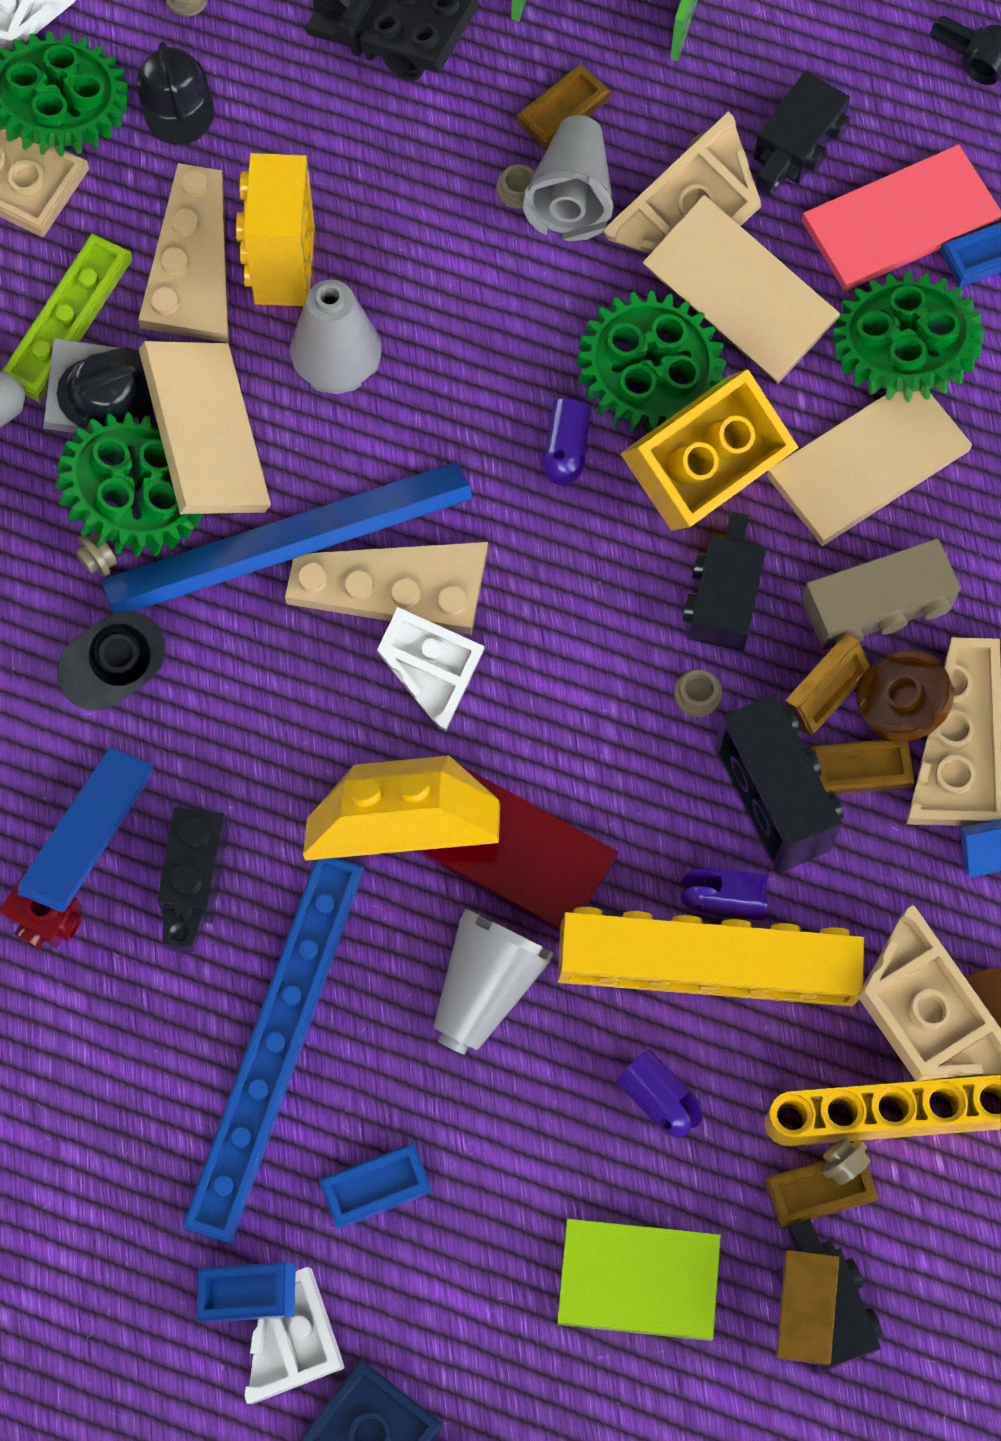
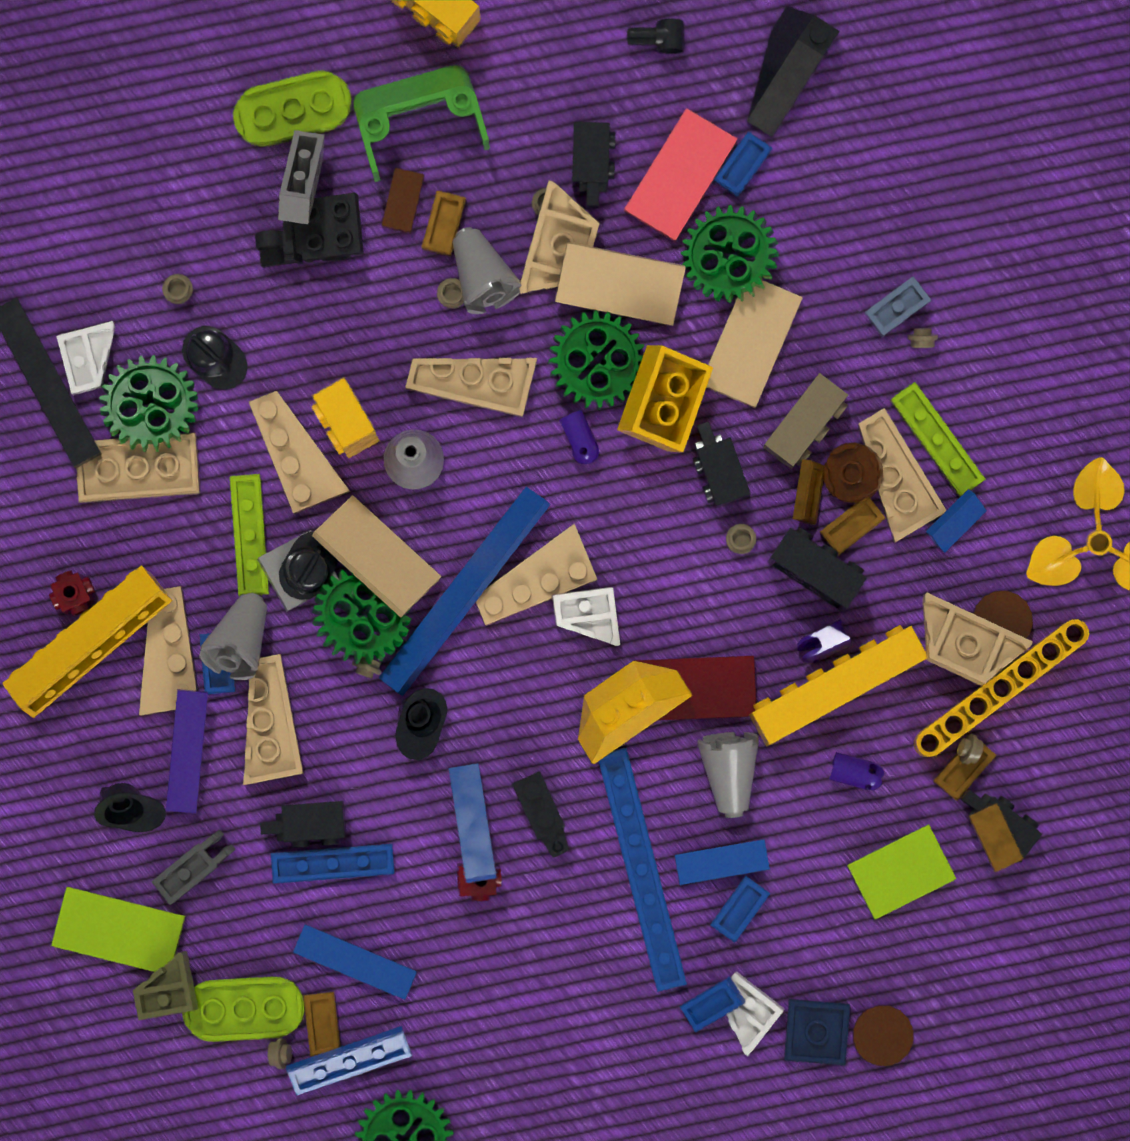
camera: 30 degrees left, 15 degrees up
(393, 1104) = (722, 862): none -> blue tile
(488, 312) = (484, 383): none -> tan wing
(530, 54) = (403, 200): none -> reddish brown tile

